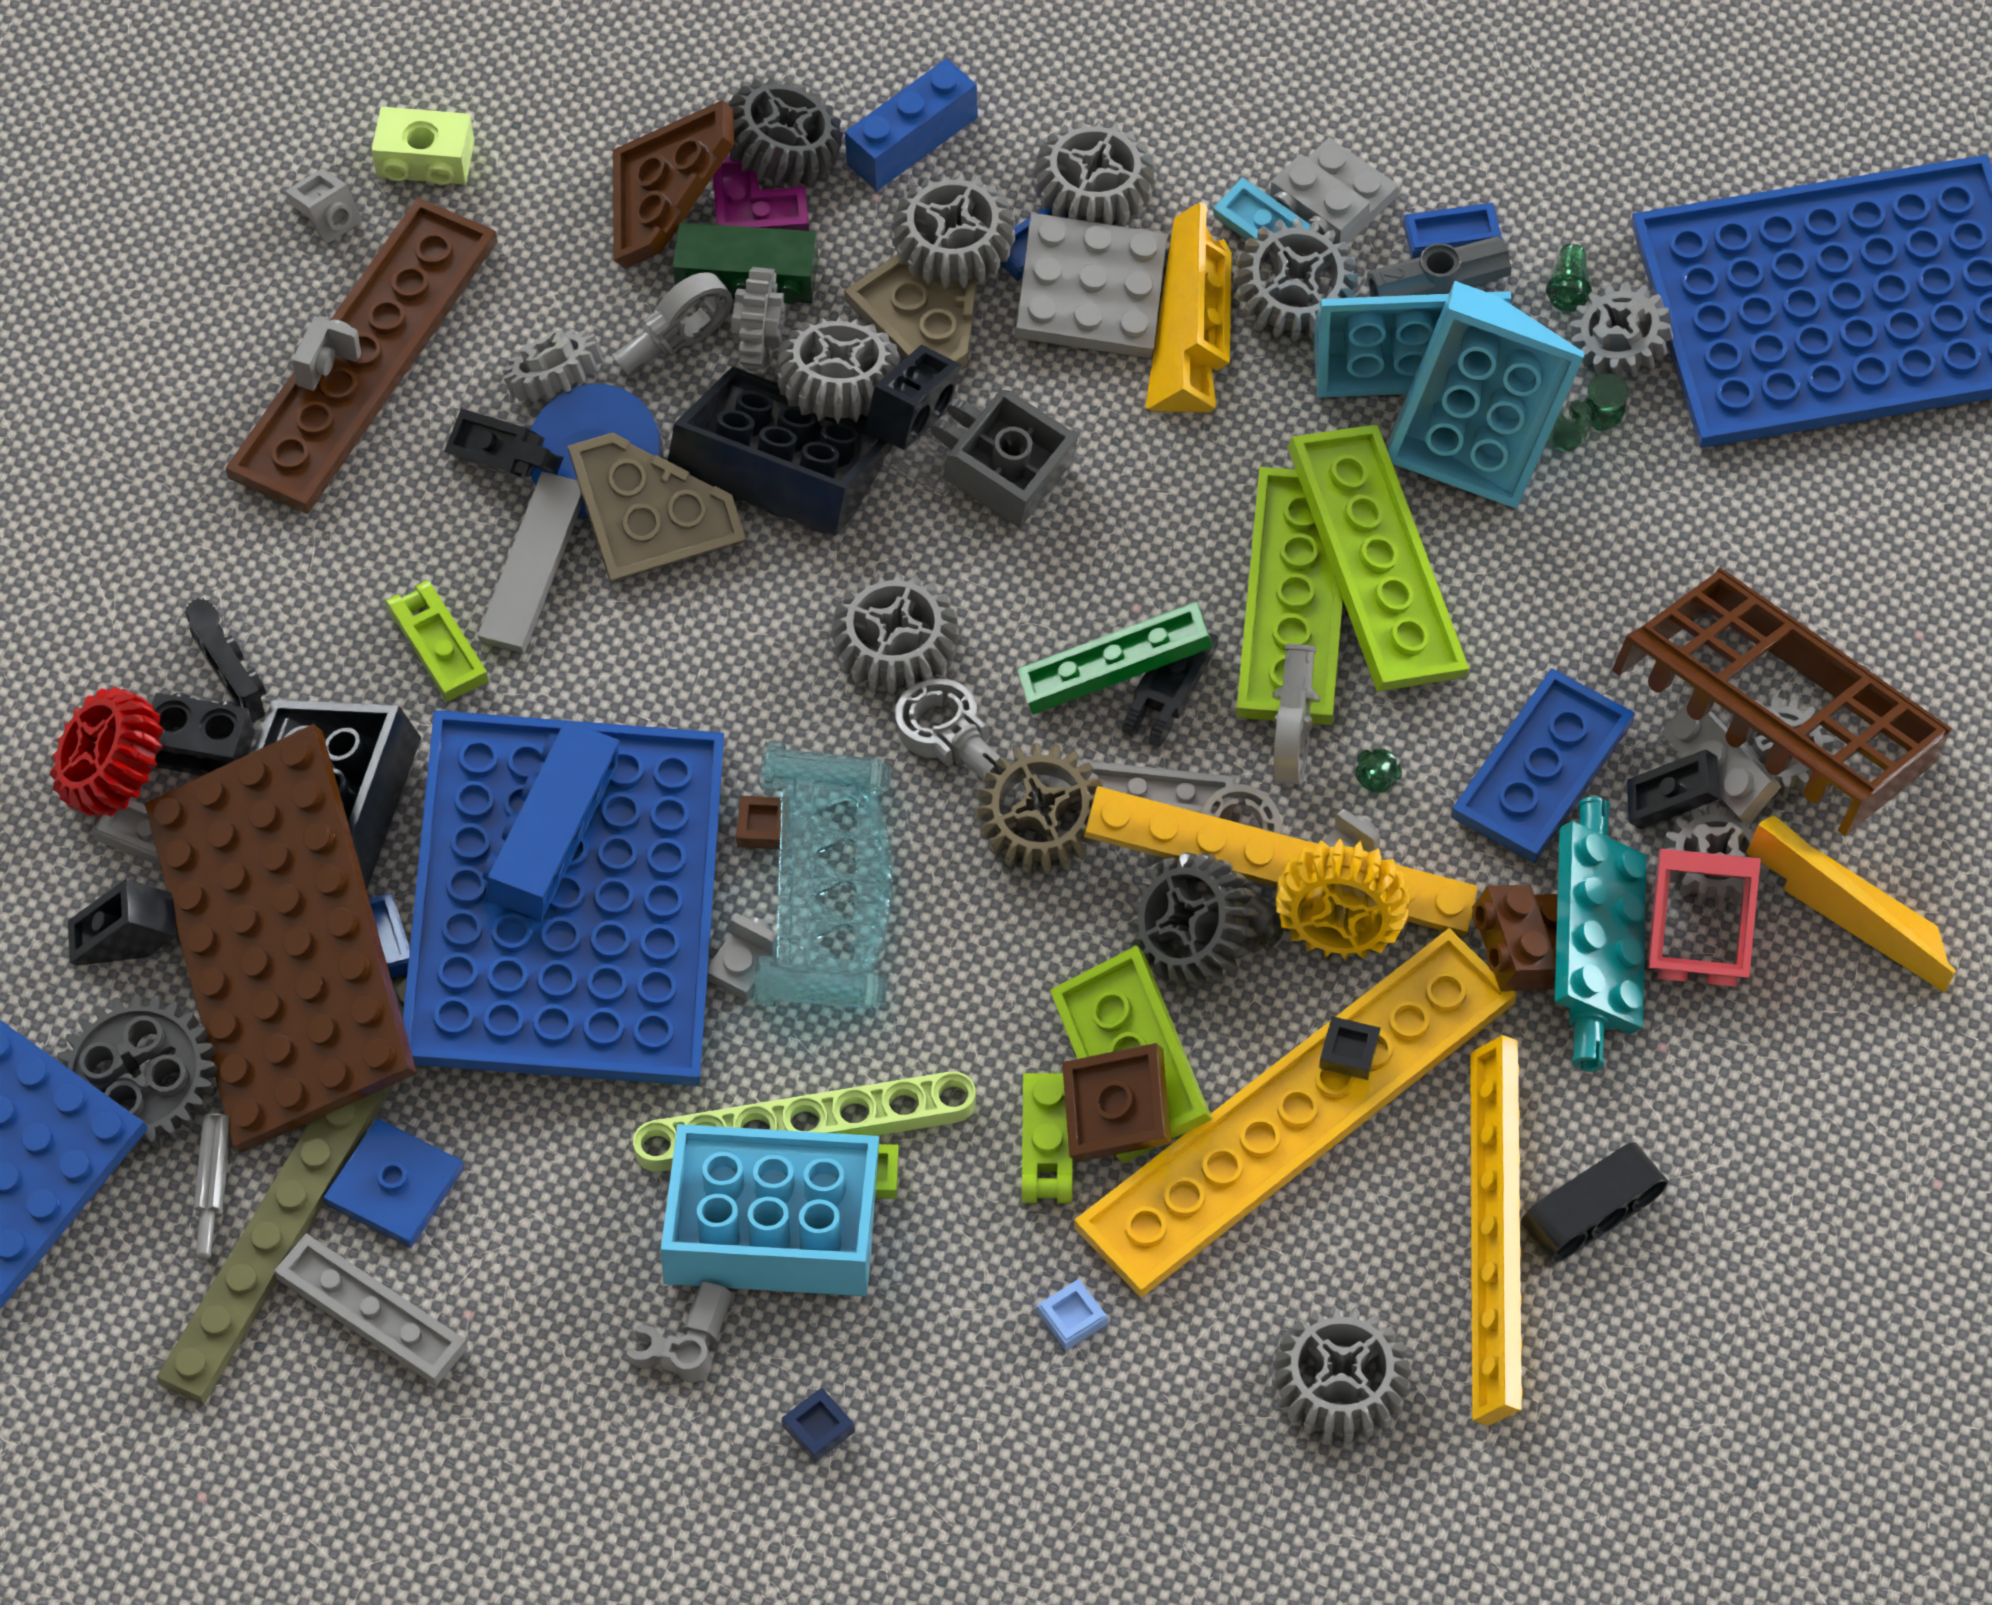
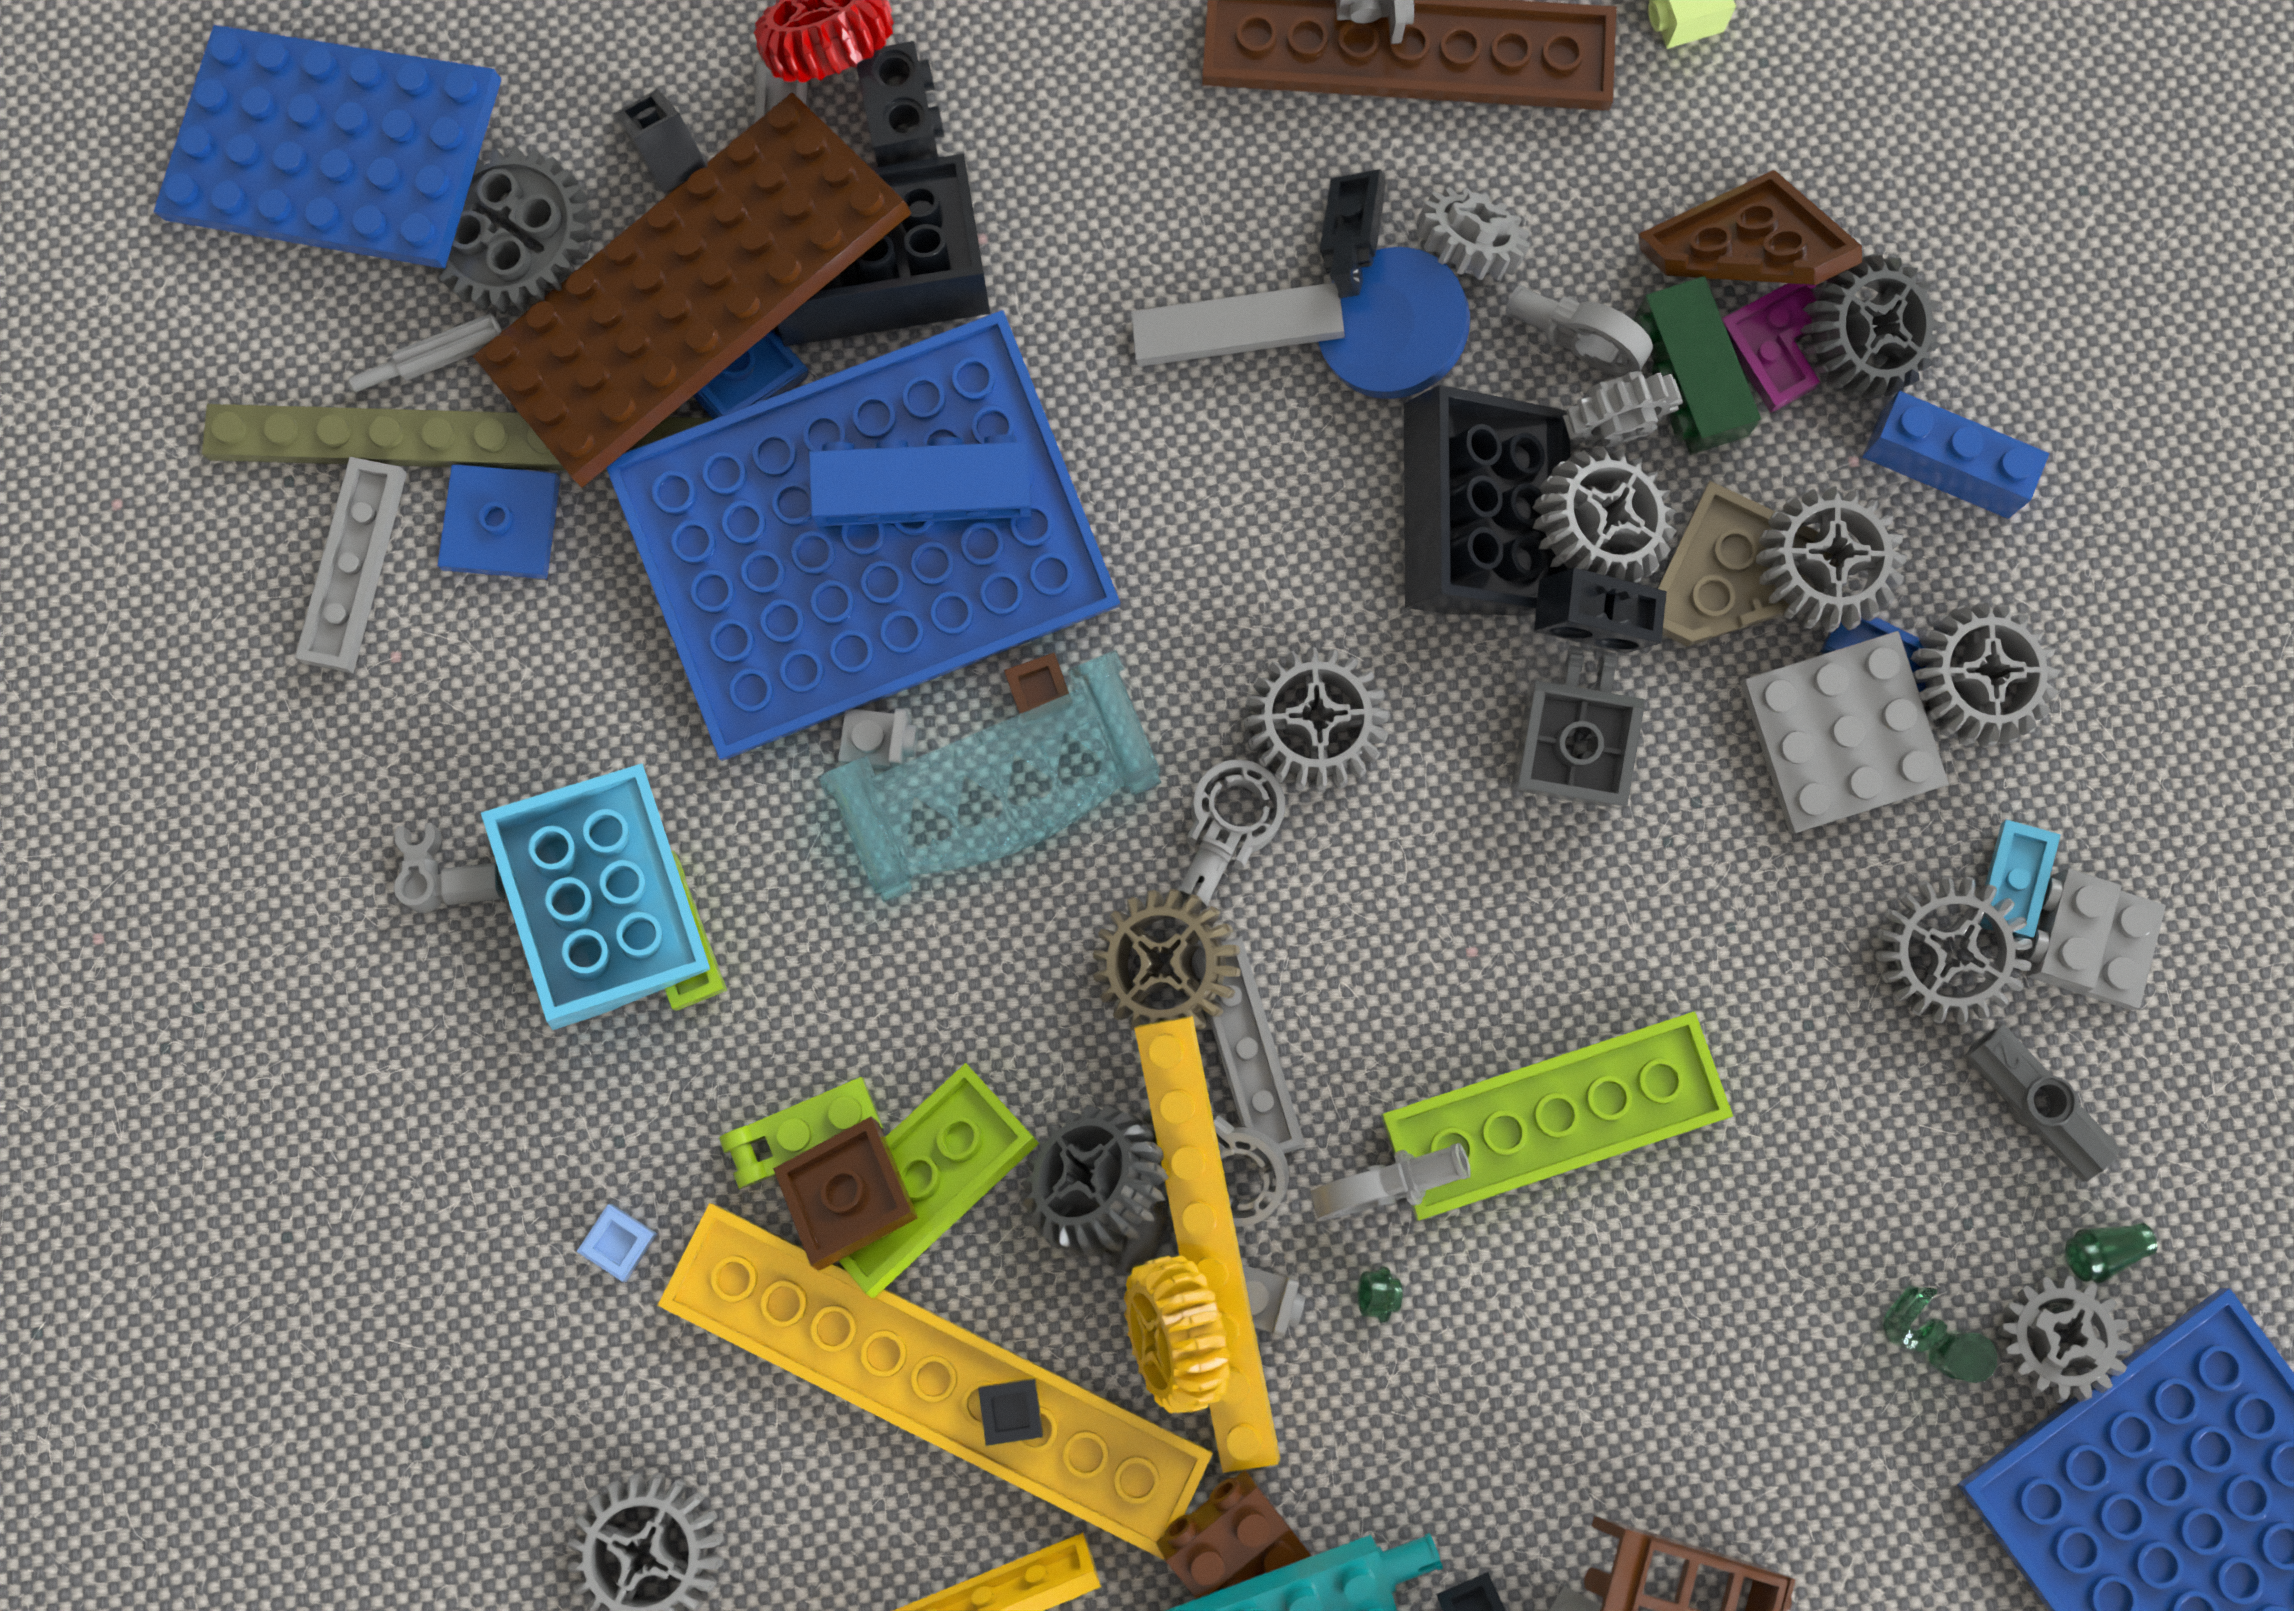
camera: 65 degrees right, 20 degrees up
(225, 657) = (995, 86): black hinge -> none
(437, 641) = (1108, 276): lime plate -> none
(648, 508) = (1346, 406): dark tan plate -> none
(818, 1424) = (392, 1045): dark blue plate -> none
(827, 1108) = (743, 900): yellowish green beam -> none
(1115, 658) = (1382, 962): plate -> none
(1168, 692) = (1394, 1027): black hinge -> none
(1192, 318) = (1858, 857): yellow wedge -> none
(1374, 342) = (1919, 1119): medium azure slope -> none
(1377, 557) = (1634, 1188): lime plate -> none
(1450, 226) = (2111, 1090): blue tile -> none
(1483, 397) = (1877, 1232): medium azure slope -> none
(1542, 765) = (1464, 1473): blue plate -> none

